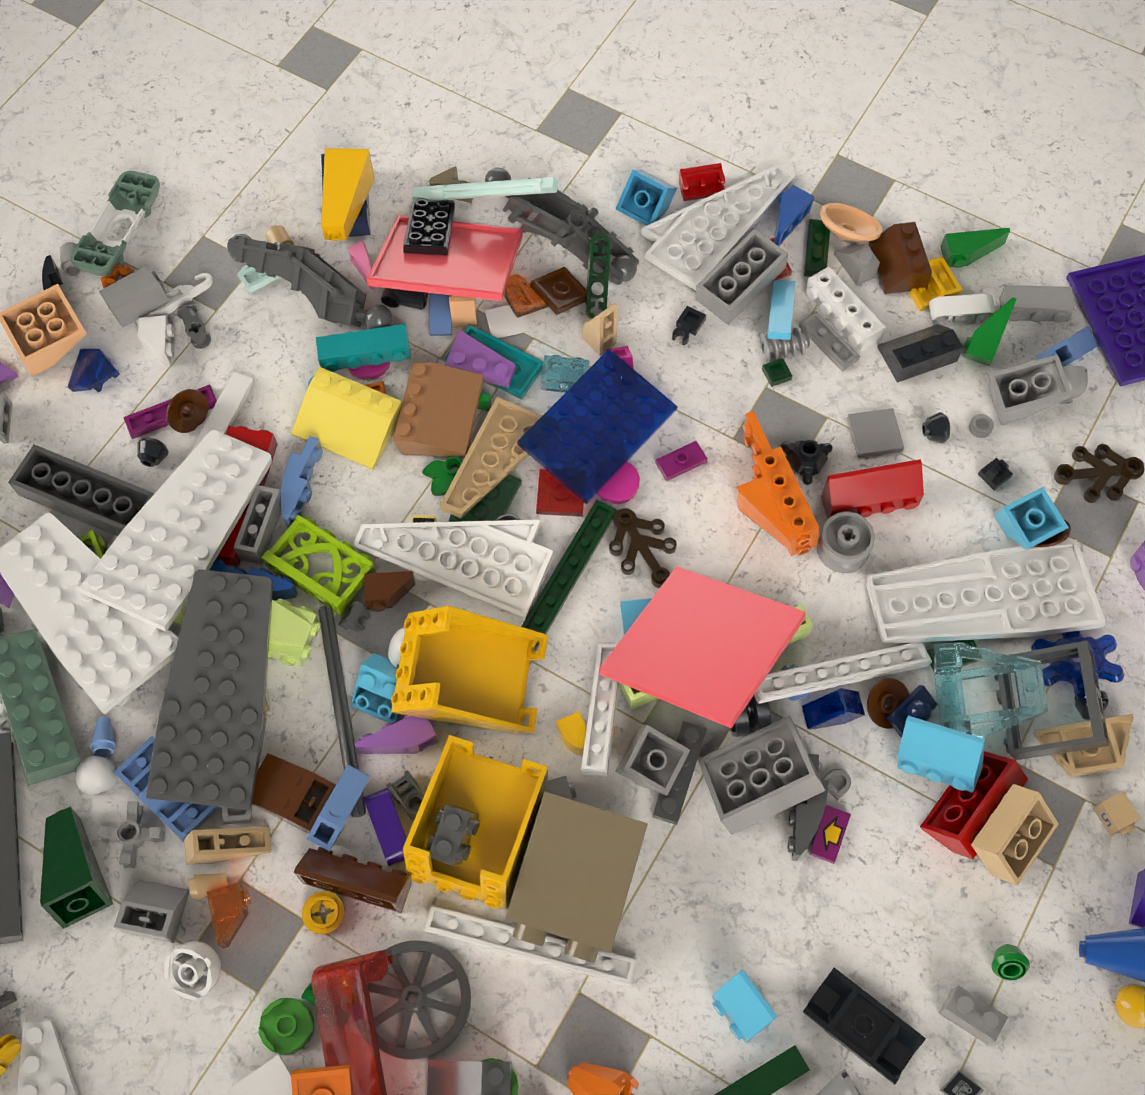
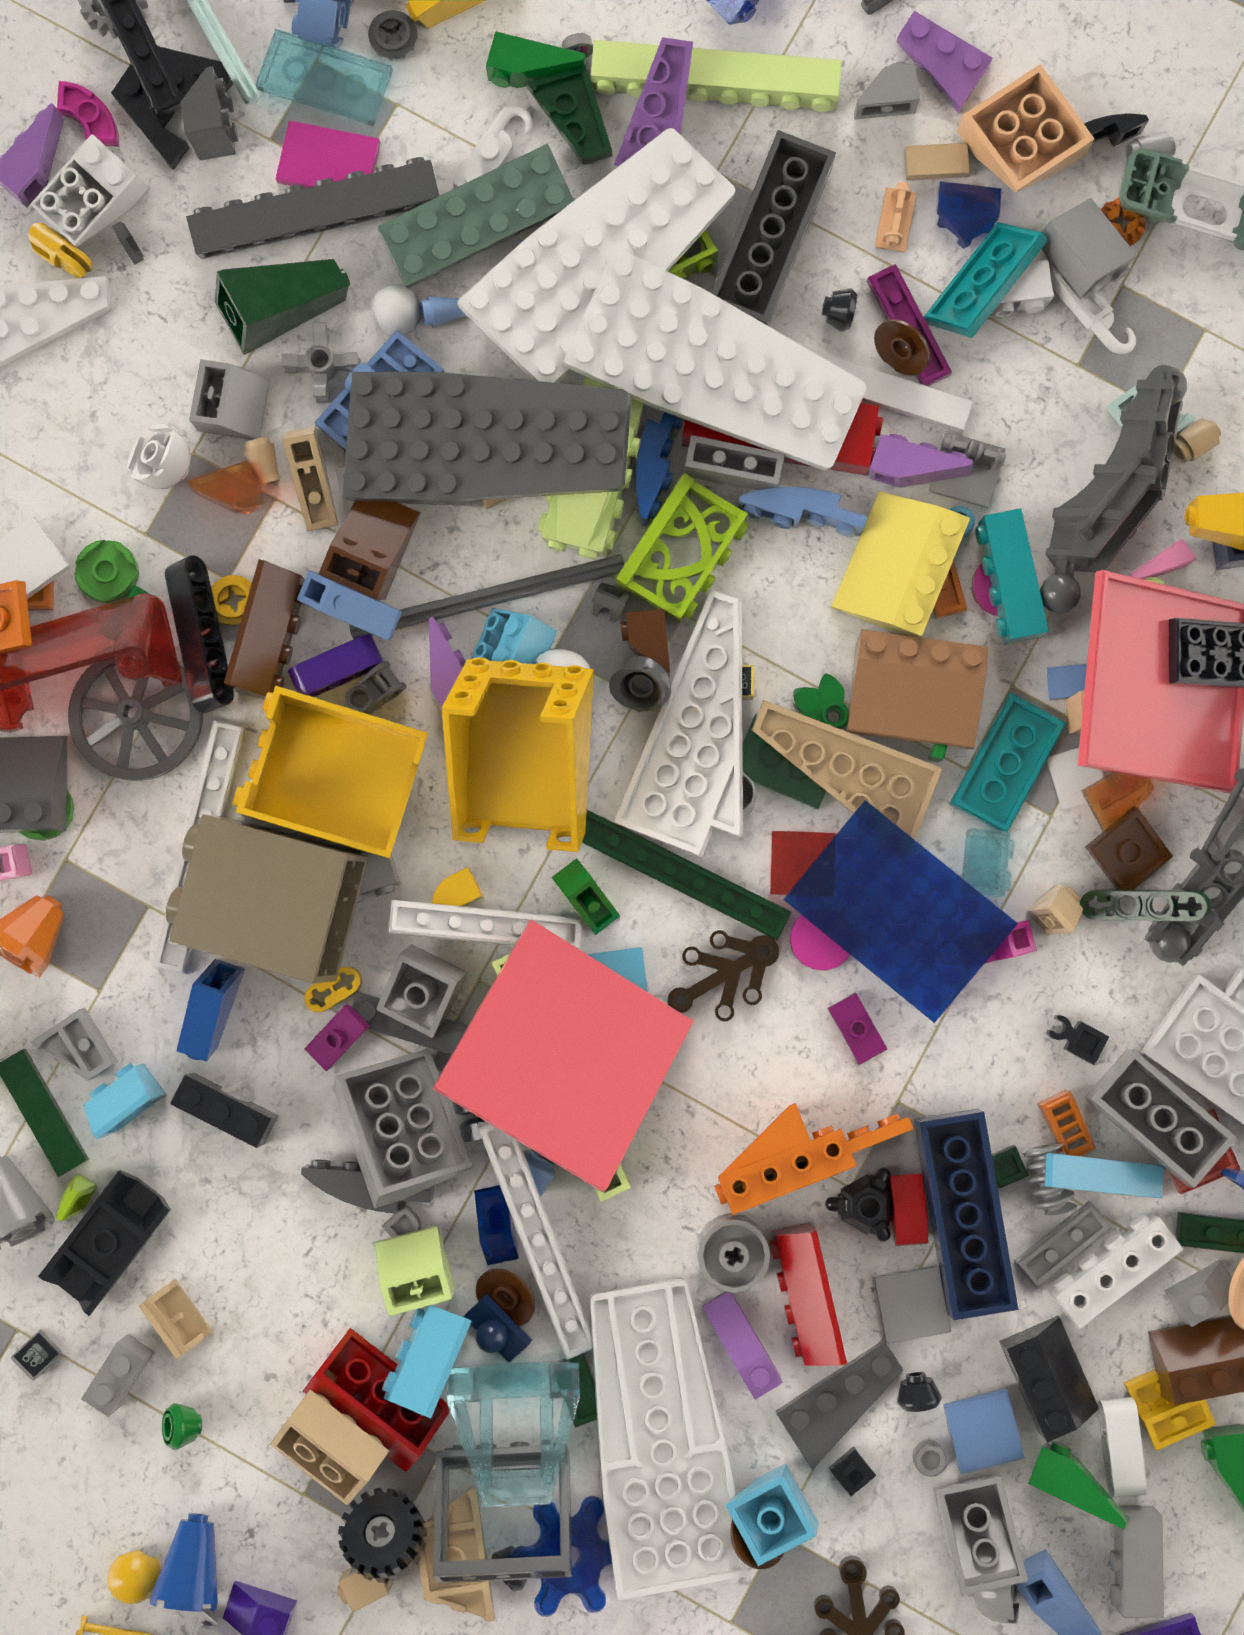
camera: 90 degrees right, 20 degrees up
(51, 389) = (936, 161): none -> tan tile
(88, 416) = (896, 218): none -> light nougat hinge
(146, 358) = (985, 279): none -> teal tile
(193, 326) = (1042, 338): dark grey connector -> none
(273, 409) = (911, 464): none -> medium lavender slope
(282, 377) = (980, 485): none -> light grey hinge
(349, 938) = (198, 633): none -> black beam
(420, 591) = (641, 684): none -> dark grey piece
(453, 835) = (311, 746): dark grey brick -> none
(477, 358) = (1001, 737): medium lavender wing -> none
(579, 639) = (586, 896): none -> green slope
(657, 832) = (337, 995): none -> yellow beam
(668, 932) = (209, 1009): none -> blue slope
(689, 829) = (337, 1037): none -> magenta plate
(697, 1051) = (78, 1044): none -> light grey wing
(737, 330) = (1056, 1101): none -> orange slope
(749, 921) = (212, 1105): none -> black arch
(811, 392) = (965, 1214): none -> dark blue brick
(815, 428) = (909, 1210): none -> red slope
(826, 1052) = (75, 1197): none -> lime slope
(830, 834) = (336, 1214): magenta tile -> none
(872, 769) = (414, 1270): none -> yellowish green slope
(912, 539) = (742, 1344): none -> medium lavender slope
(922, 966) = (175, 1319): none -> tan hinge
(949, 483) = (836, 1403): none -> dark grey wing
(959, 391) = (983, 1431): none -> medium blue slope
(1093, 784) = (387, 1555): none -> black bush

